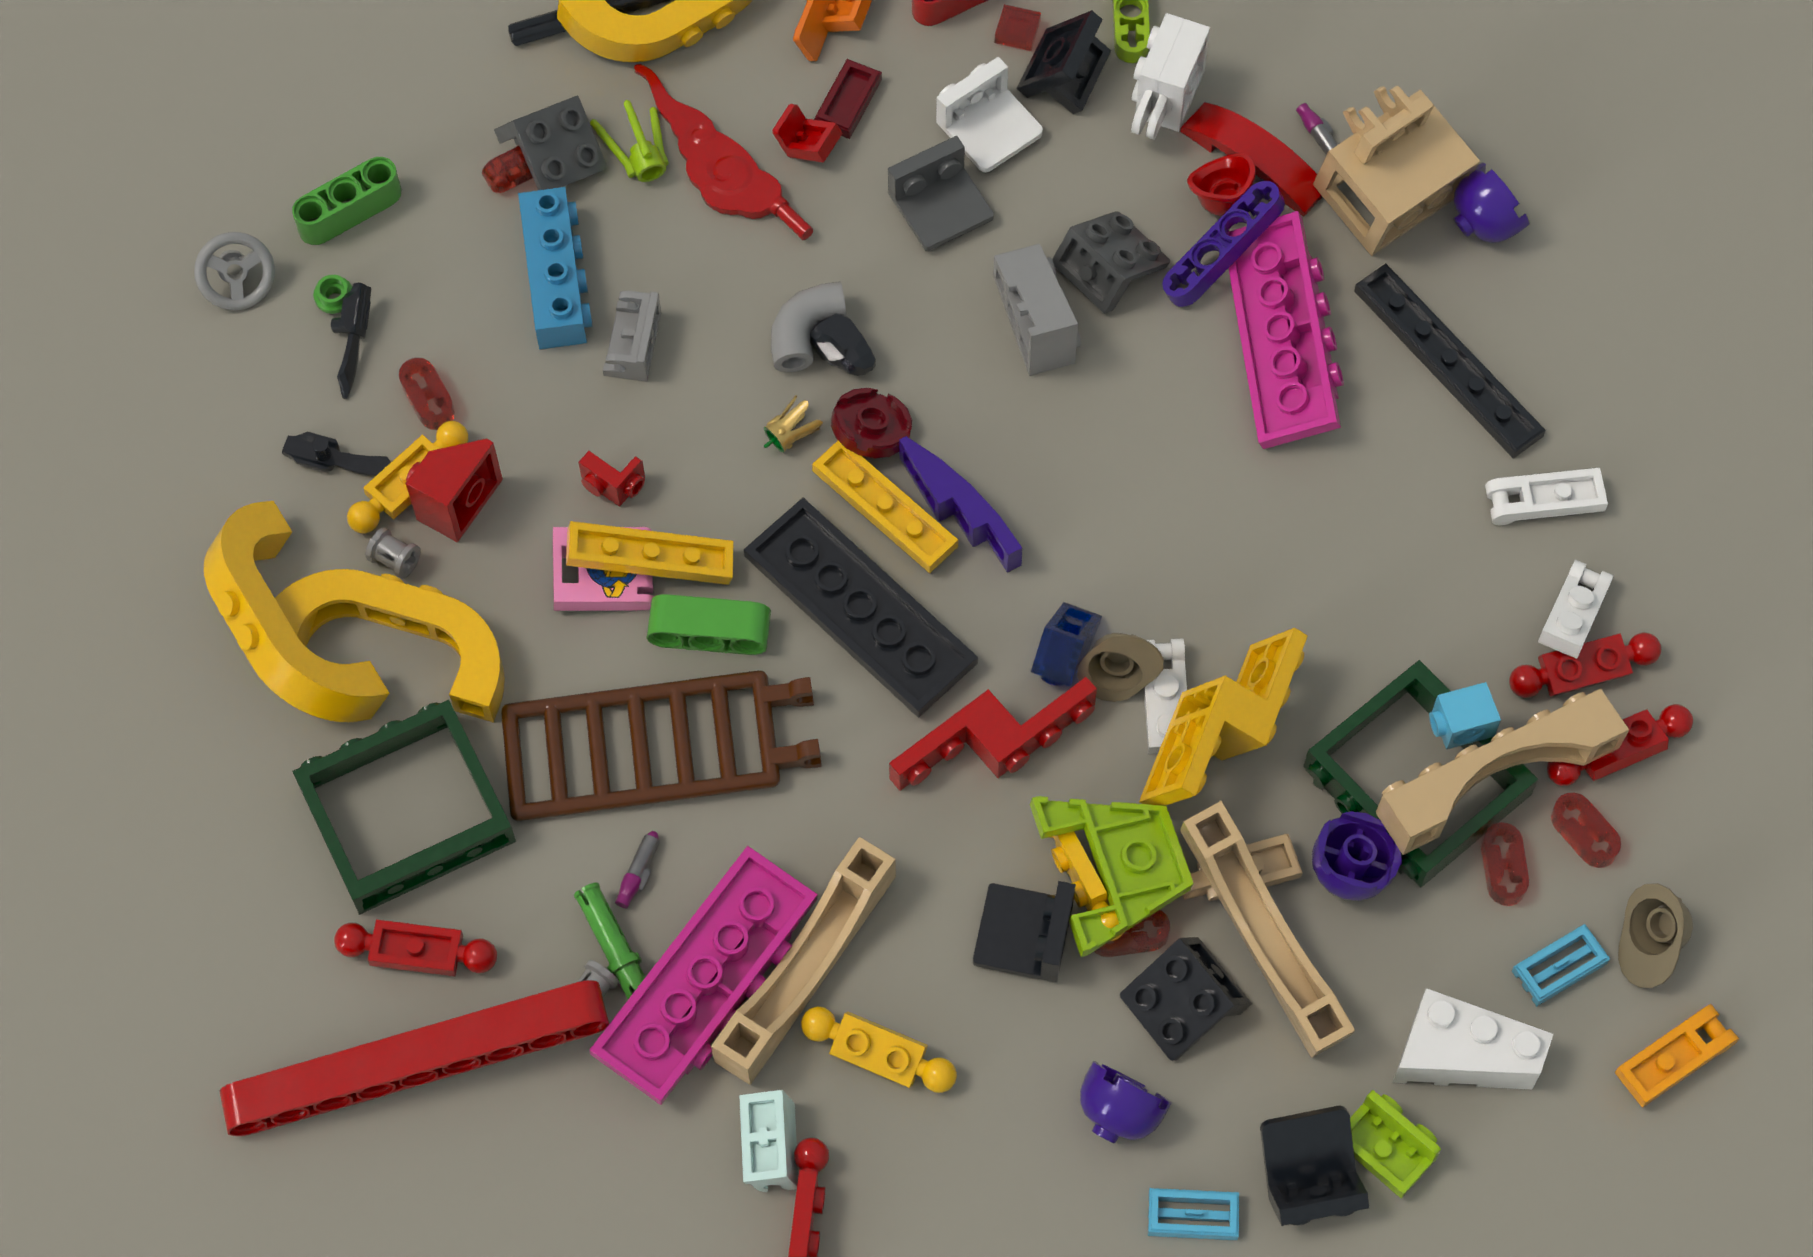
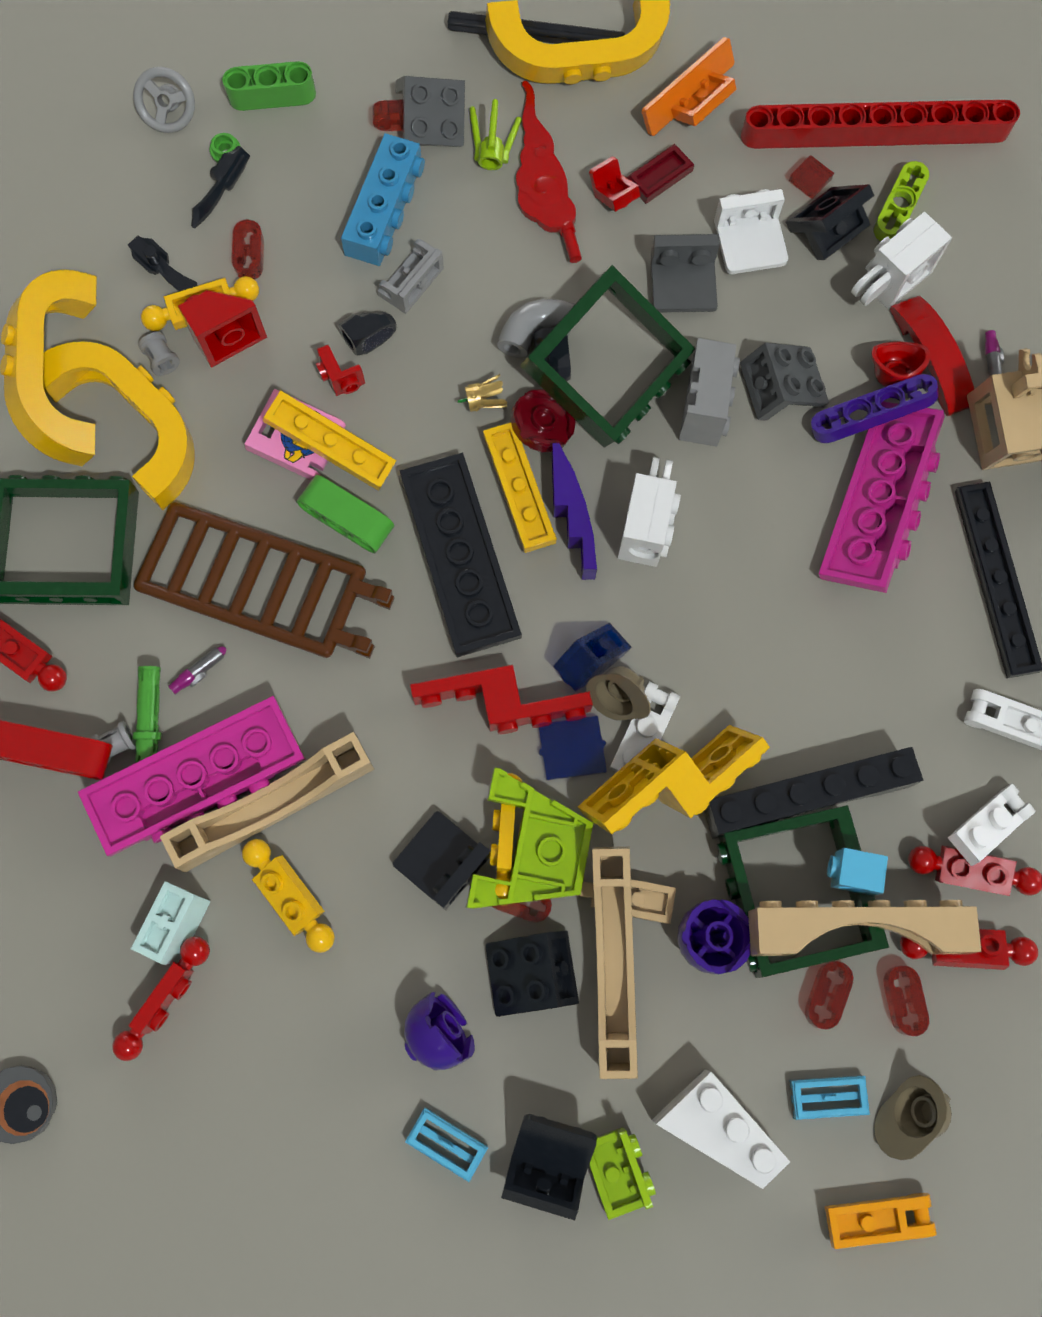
camera: 25 degrees right, 10 degrees up
(617, 419) = (367, 331): none -> black rock
(884, 381) = (569, 398): none -> dark green window
(1047, 467) = (650, 517): none -> white brick
(1097, 751) = (572, 748): none -> clear blue piece
(1407, 637) = (813, 791): none -> black arch

